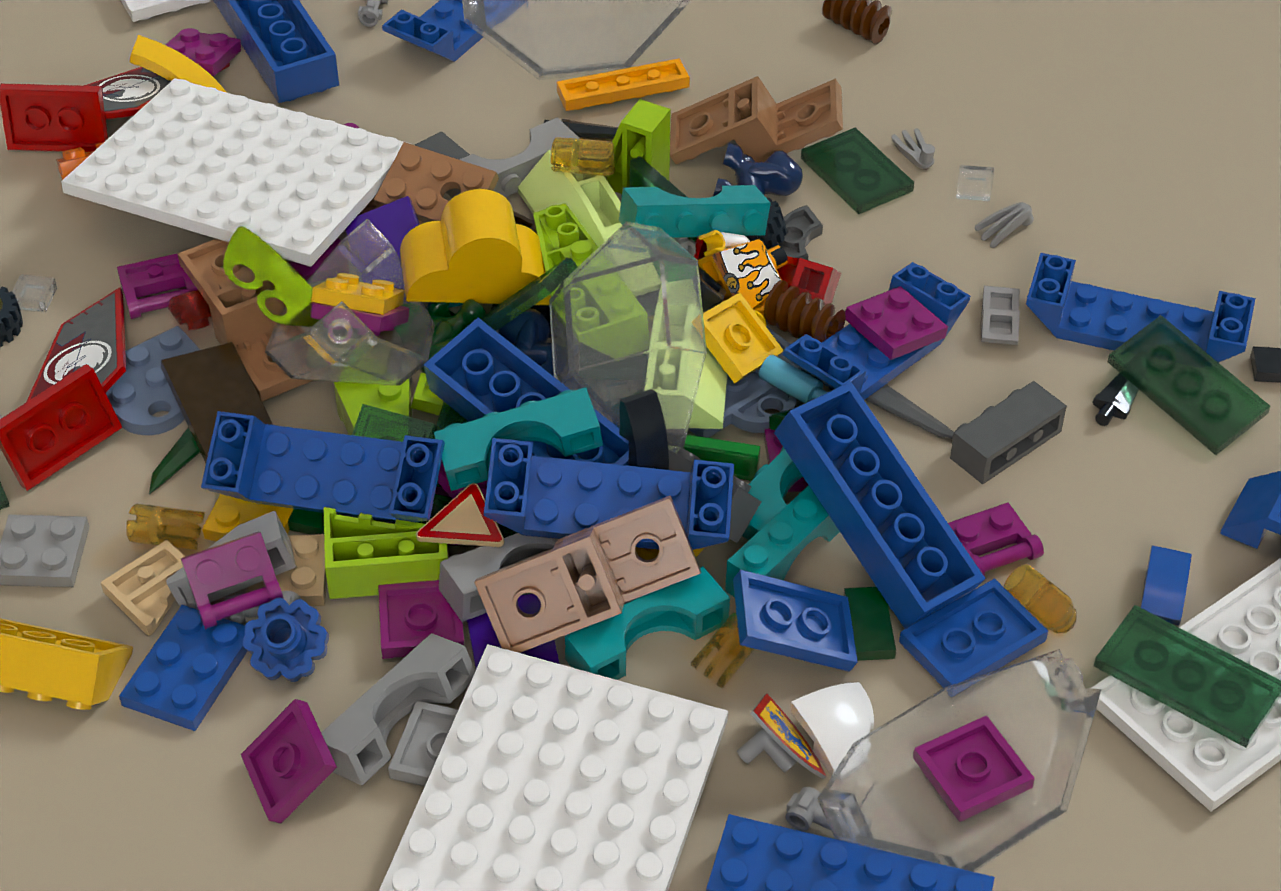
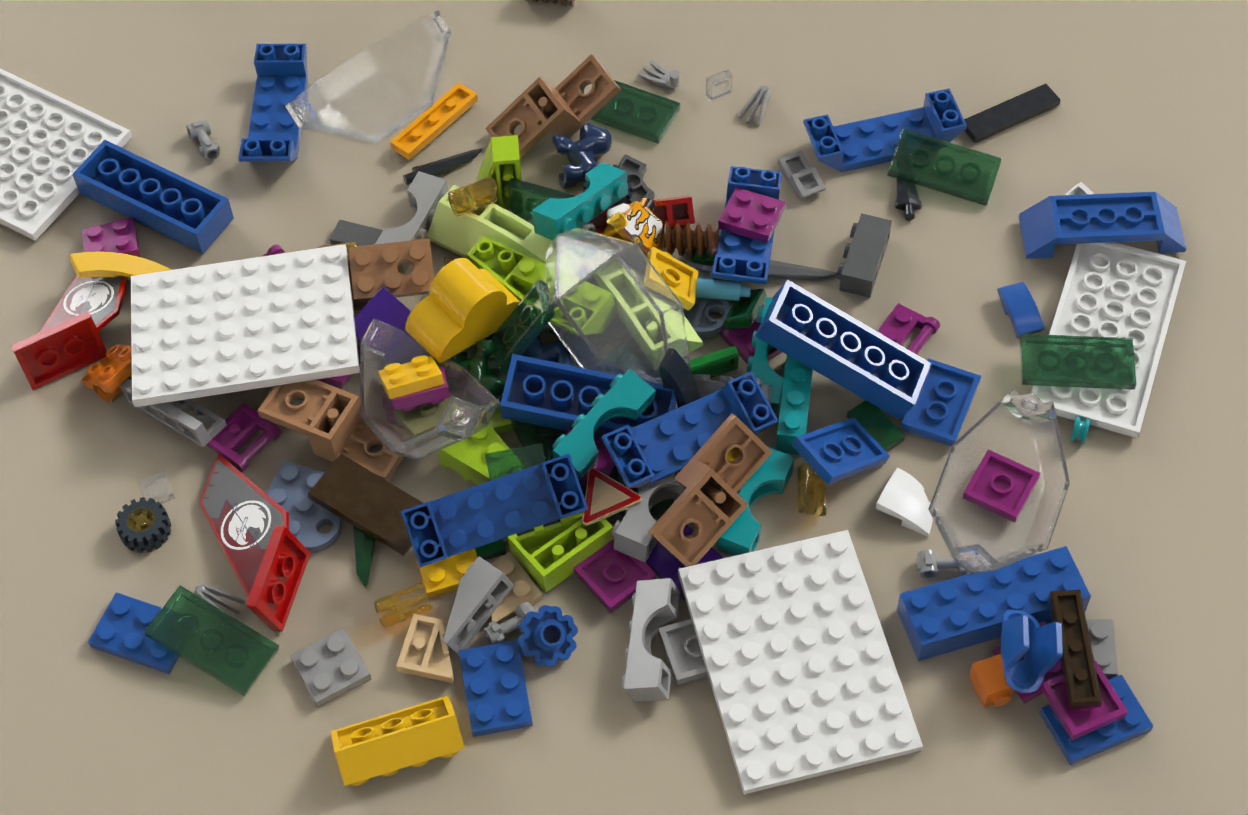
camera: 30 degrees left, 10 degrees up
(112, 246) = (179, 420): none -> light grey fence
(190, 310) = (285, 443): clear red cone -> none
(225, 567) = (484, 610): magenta plate -> none
(266, 264) = (323, 385): clear neon green piece -> none
(288, 761) = (618, 711): magenta plate -> none
(779, 740) = (878, 534): shield -> none
(1042, 599) = (962, 356): clear yellow arm -> none
(1134, 759) = (1080, 430): none -> teal bush

